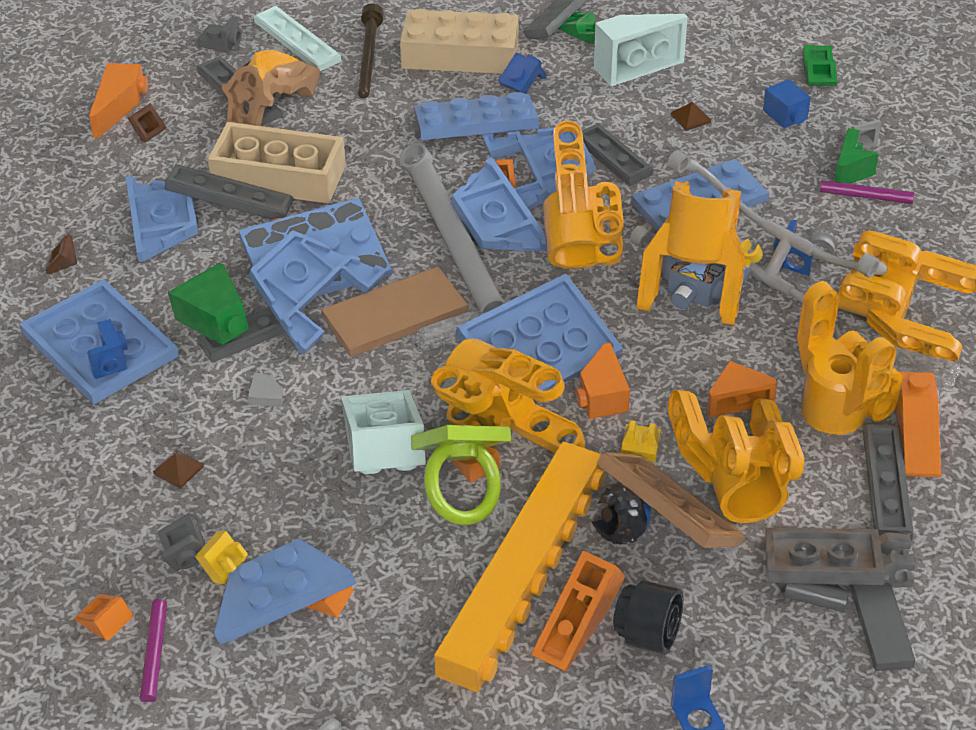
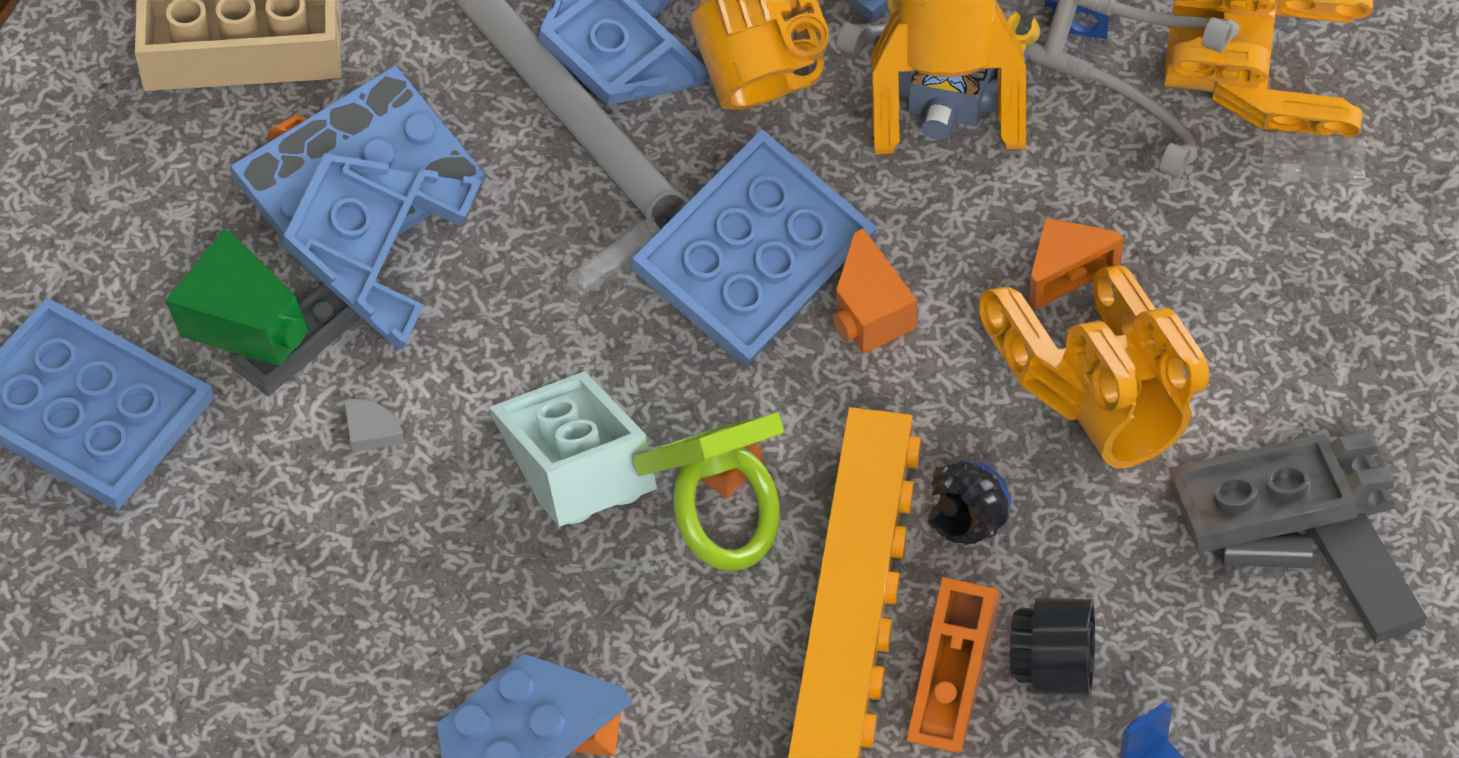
camera: 15 degrees left, 10 degrees up
(110, 356) = (124, 420): blue bracket -> none
(159, 217) = (84, 161): medium blue wing -> none
(178, 469) = (290, 583): reddish brown slope -> none
(181, 542) = (352, 702): dark grey bracket -> none
(221, 556) = (419, 709): yellow tile -> none
(228, 192) = (179, 98): dark grey tile -> none
(393, 311) = (514, 243): medium nougat tile -> none
(501, 390) = (734, 349): light orange piece -> none
(641, 440) = (951, 375): yellow tile -> none
(671, 500) = (1029, 460): medium nougat tile -> none
(843, 376) = (1208, 220): light orange piece -> none
(887, 479) = (1313, 351): dark grey tile -> none
(919, 424) = (1333, 252): orange slope -> none

